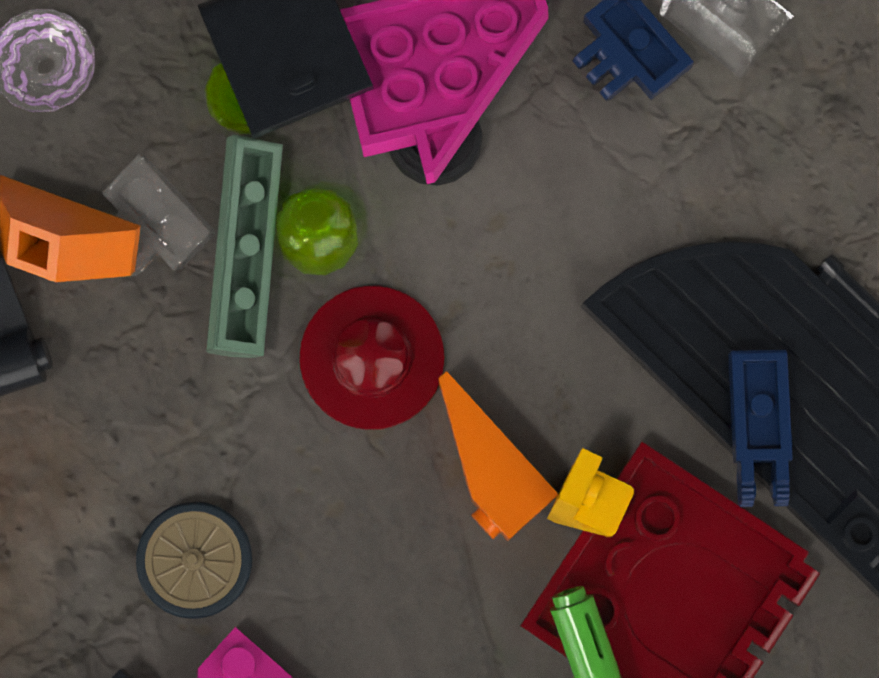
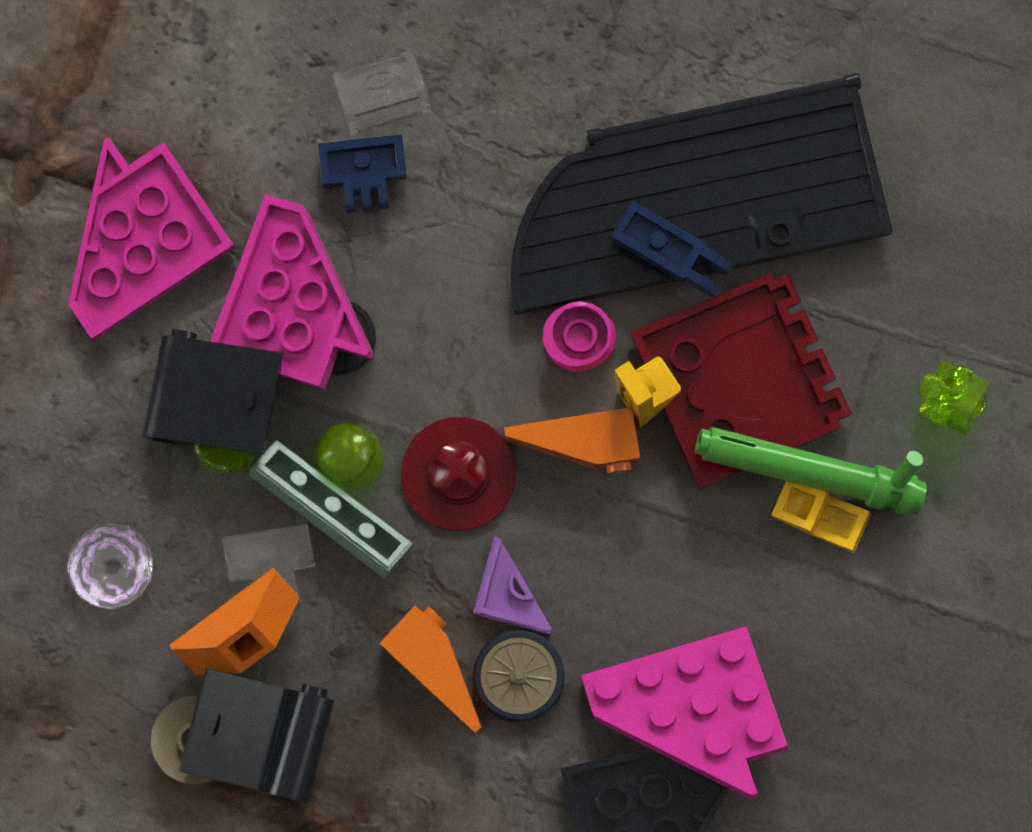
camera: 60 degrees left, 0 degrees up
(150, 456) = (429, 657): none -> orange slope
(273, 490) = (505, 594): none -> medium lavender tile
(601, 389) = (579, 336): none -> dark pink piece

